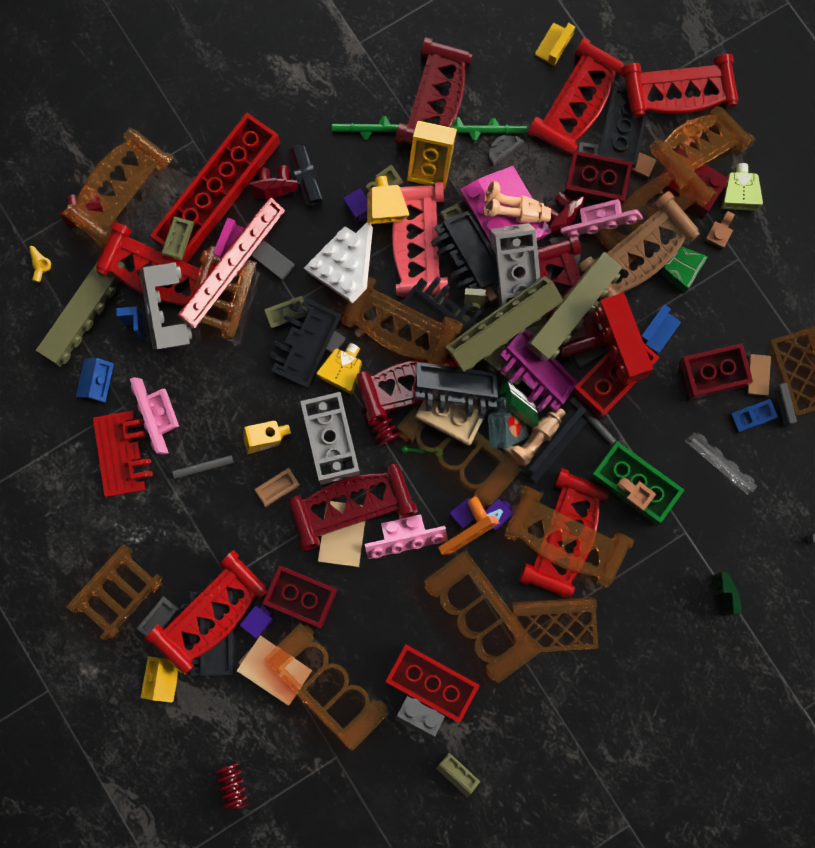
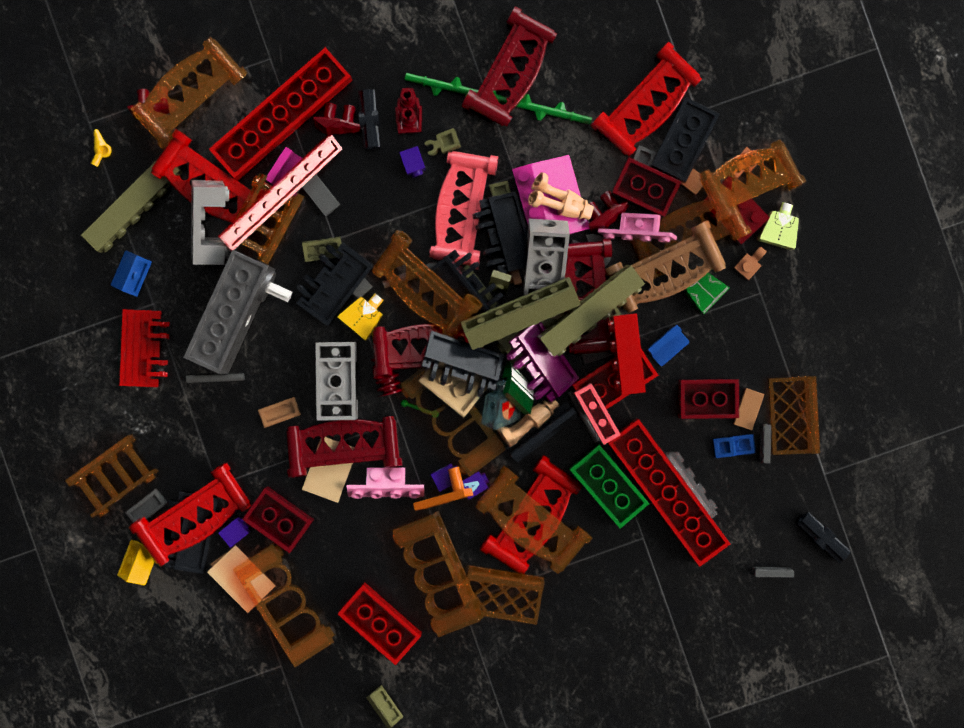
camera: 10 degrees right, 10 degrees up
(132, 316) = (181, 225): blue panel -> none
(156, 413) = (181, 317): bright pink bracket -> none
(177, 238) = (233, 159): olive plate -> none
(206, 389) = (231, 311): none -> flat silver piece
(230, 787) = (182, 672): dark red piece -> none
(257, 440) = (268, 364): yellow torso -> none
(343, 160) = (408, 112): none -> dark red connector
(344, 262) = (386, 216): white wing -> none
(385, 203) = (437, 167): yellow torso -> none
(419, 717) = (360, 653): dark grey bracket -> none
(431, 153) = (492, 128): yellow slope -> none
(503, 147) = (563, 133): dark grey tile -> none
(555, 43) = (639, 39): yellow panel -> none
(607, 406) = (597, 413): none -> coral brick
(638, 494) = (605, 499): nougat plate -> none
(701, 476) = (668, 492): none -> red brick
(719, 75) = (710, 102): red piece -> none
(724, 586) = (663, 600): dark green slope -> none

